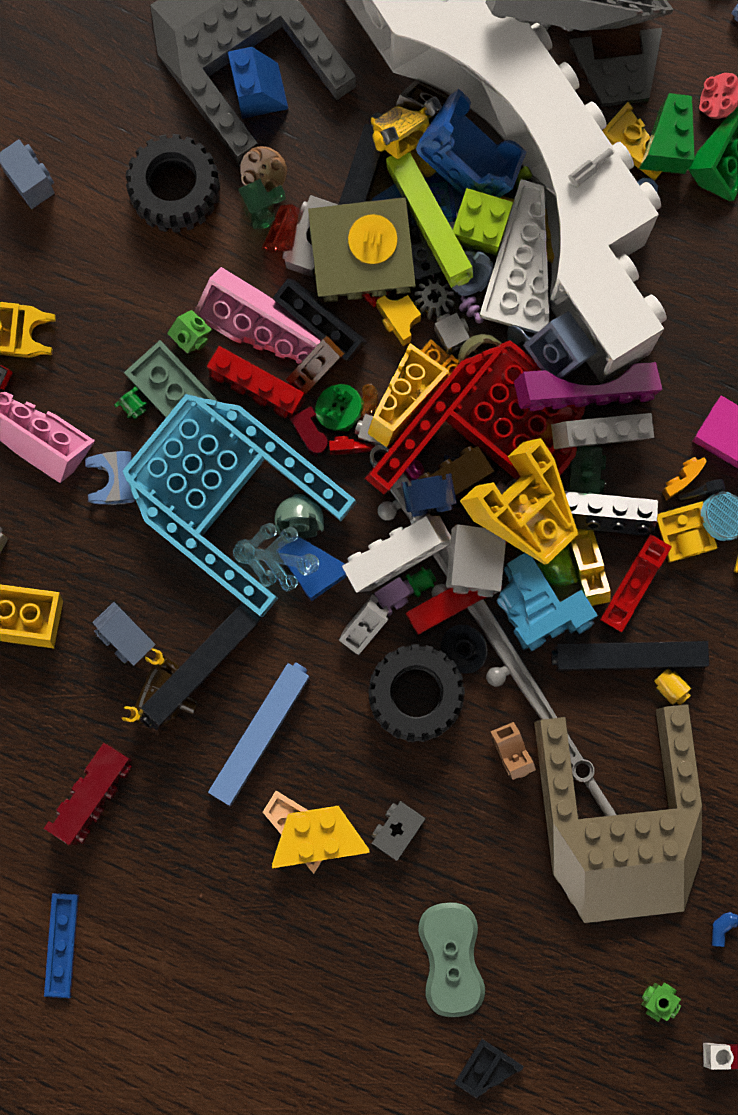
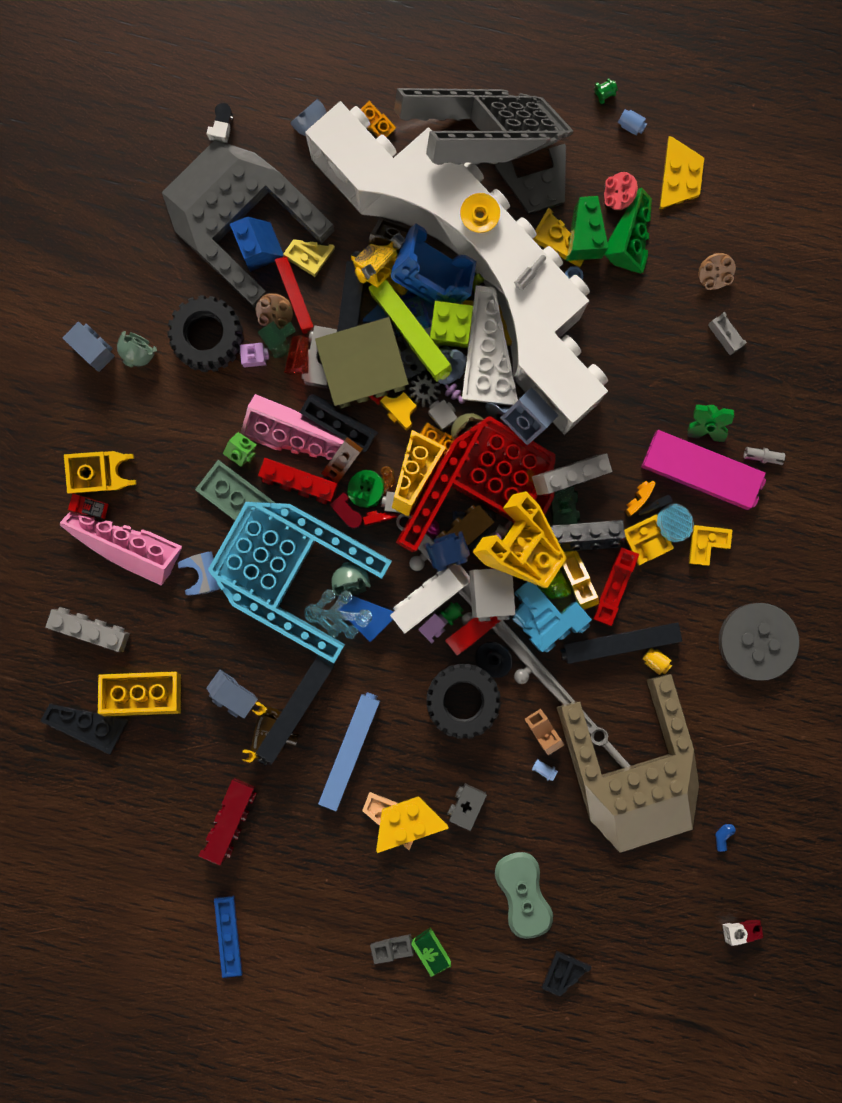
camera: 10 degrees left, 5 degrees up
(81, 188) = (134, 349): none -> sand green cylinder
(131, 404) = (205, 513): green brick -> none
(228, 219) = (253, 354): none -> lavender brick
(269, 998) = (392, 948): none -> dark grey slope
(292, 154) = (294, 294): none -> red slope
(318, 110) = (308, 255): none -> light yellow wing
(319, 1010) = (431, 952): none -> piece
(364, 625) = (414, 655): light grey hinge -> none
(372, 239) = (369, 354): yellow piece -> none
(505, 801) = (544, 770): none -> light blue pin
(543, 389) = (520, 451): magenta arch -> none
(544, 74) = (480, 203): none -> yellow dish
(651, 1002) = (680, 897): bright green brick -> none

